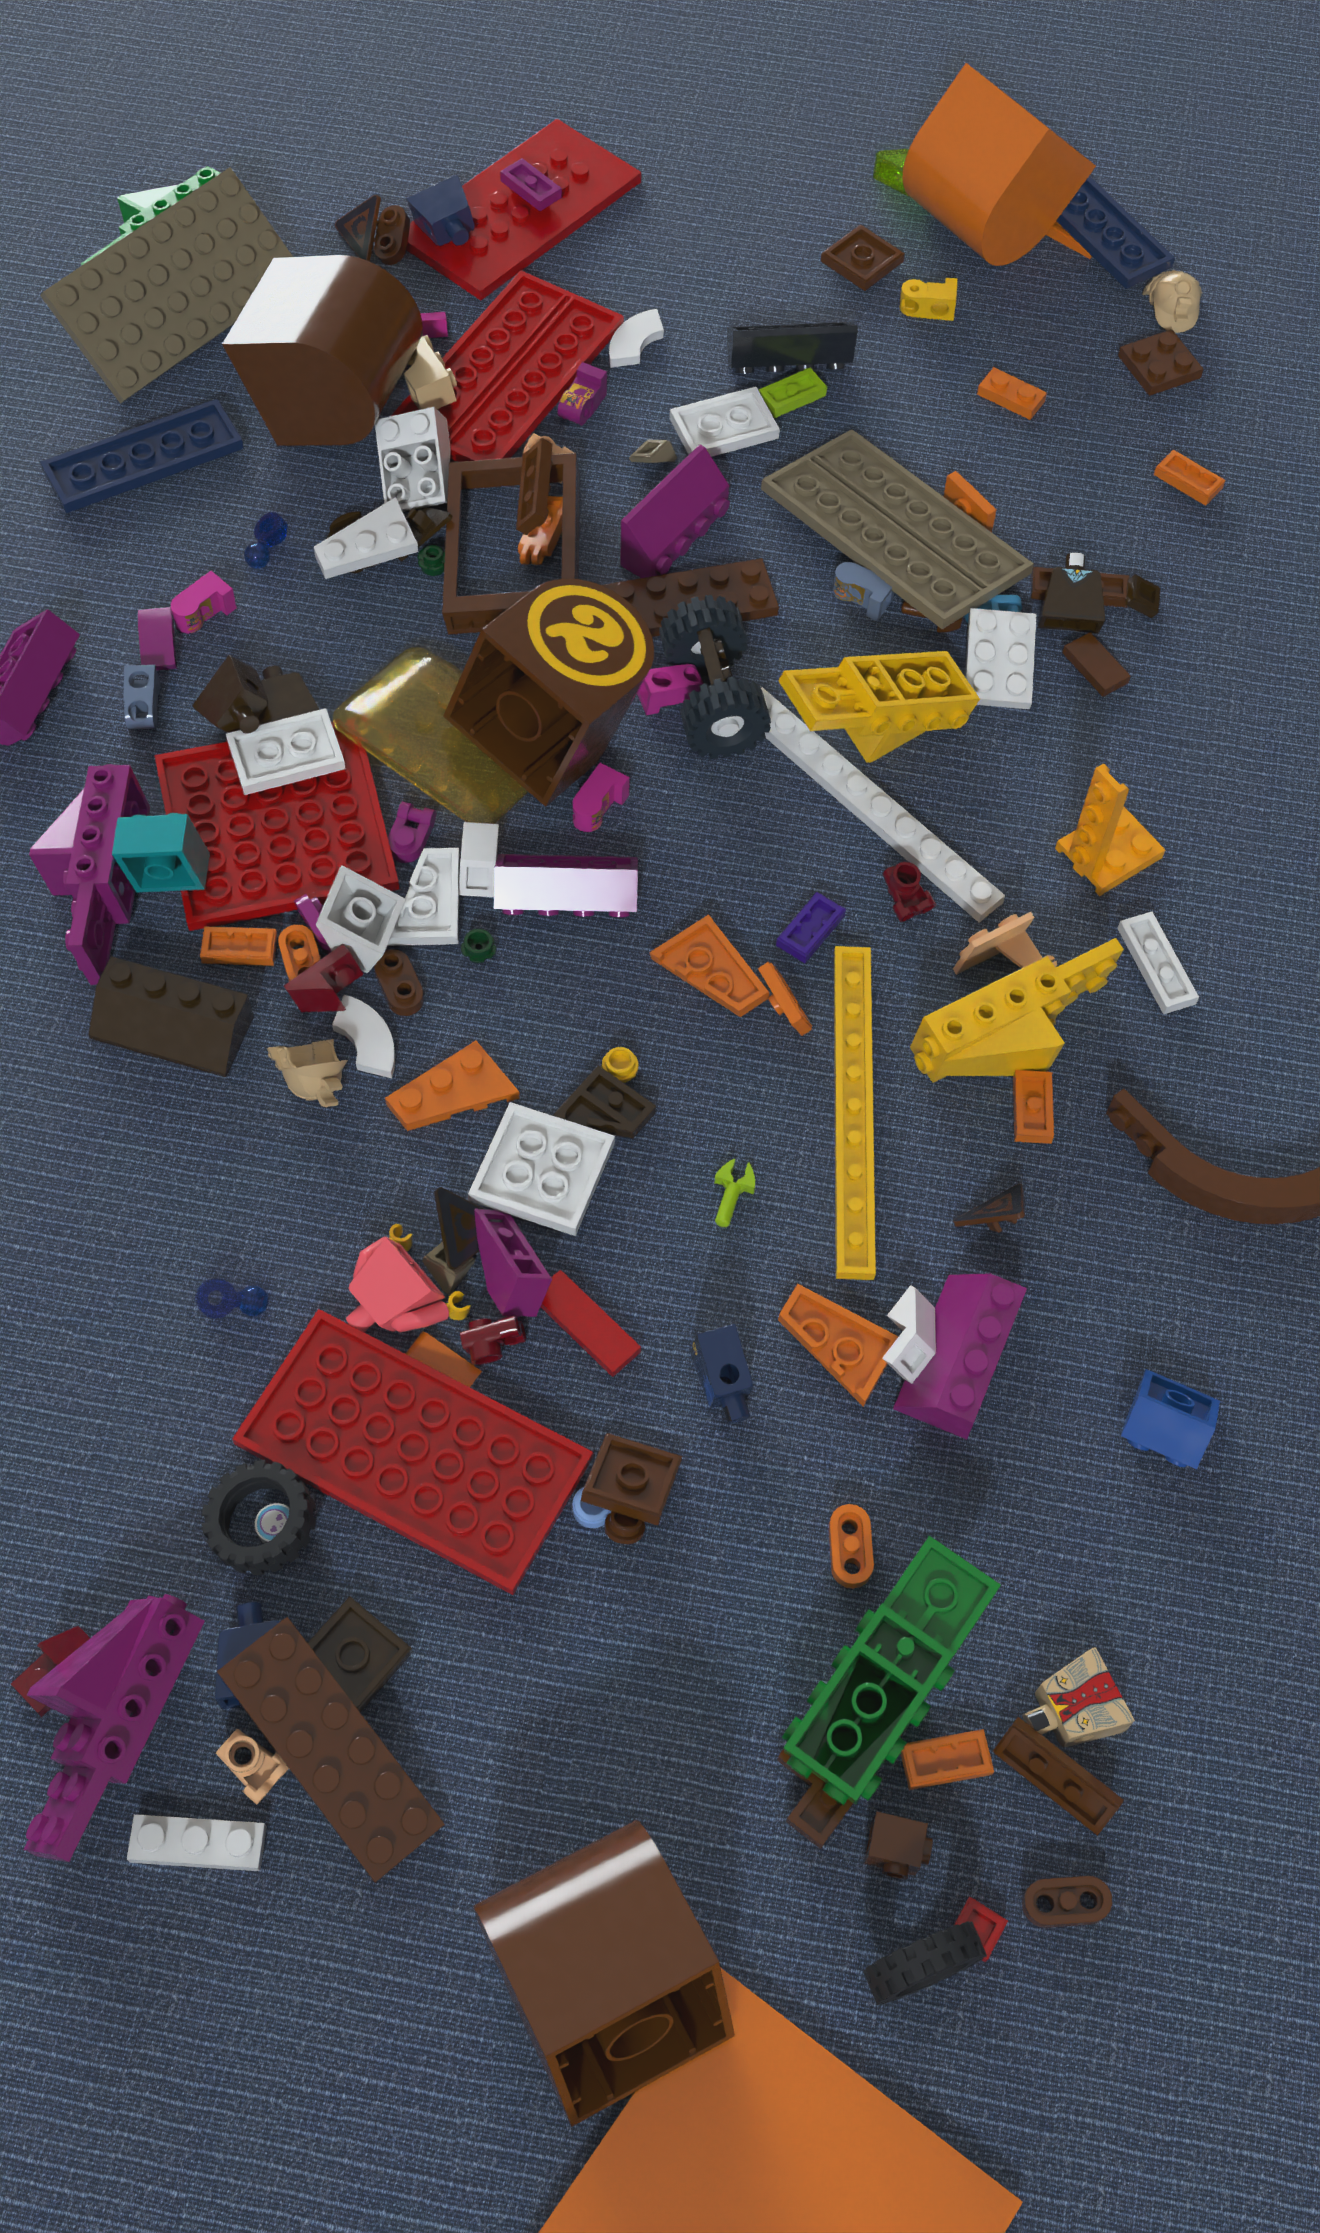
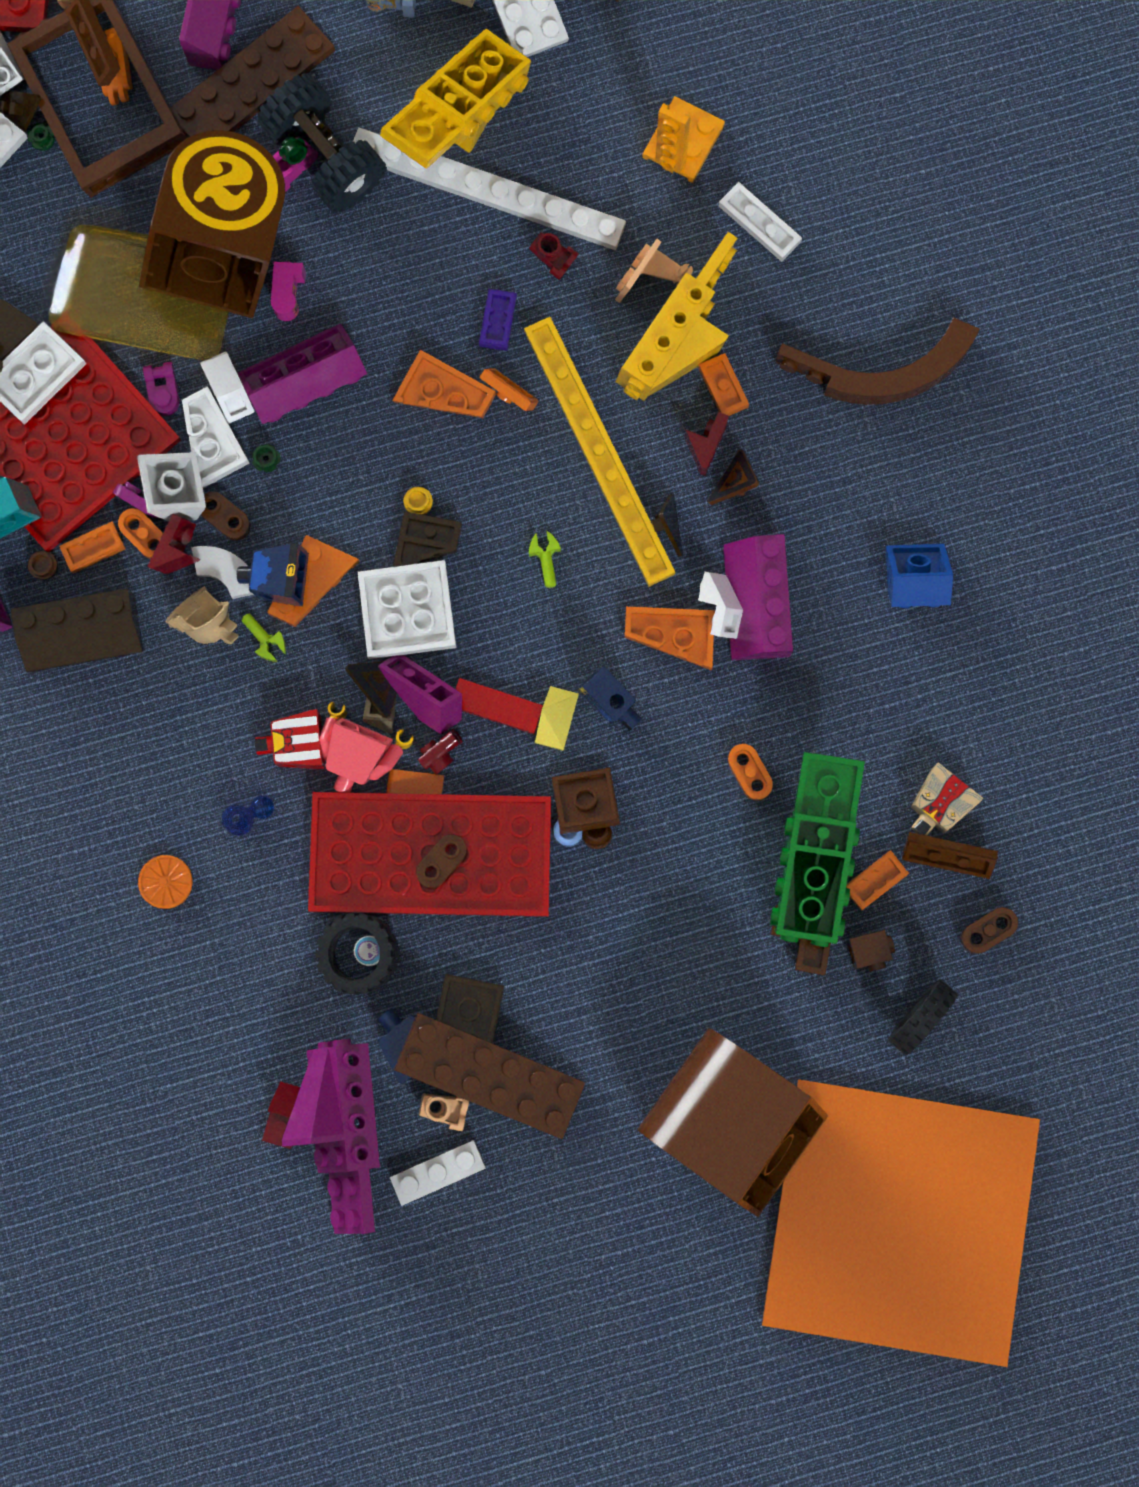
camera: 20 degrees left, 20 degrees up
(92, 1327) = (165, 882): none -> orange wheel
(175, 939) = (42, 565): none -> reddish brown plate
(331, 1244) = (294, 741): none -> torso
(366, 1125) = (264, 638): none -> lime bar
(419, 1058) = (277, 574): none -> dark blue torso
(422, 1461) = (441, 861): none -> reddish brown plate
(647, 1369) = (556, 718): none -> light yellow slope
(683, 675) = (293, 150): none -> dark green plate
(897, 1213) = (668, 521): none -> dark brown piece
(981, 1158) = (704, 448): none -> dark red slope
(986, 1922) = (942, 969): red tile -> none

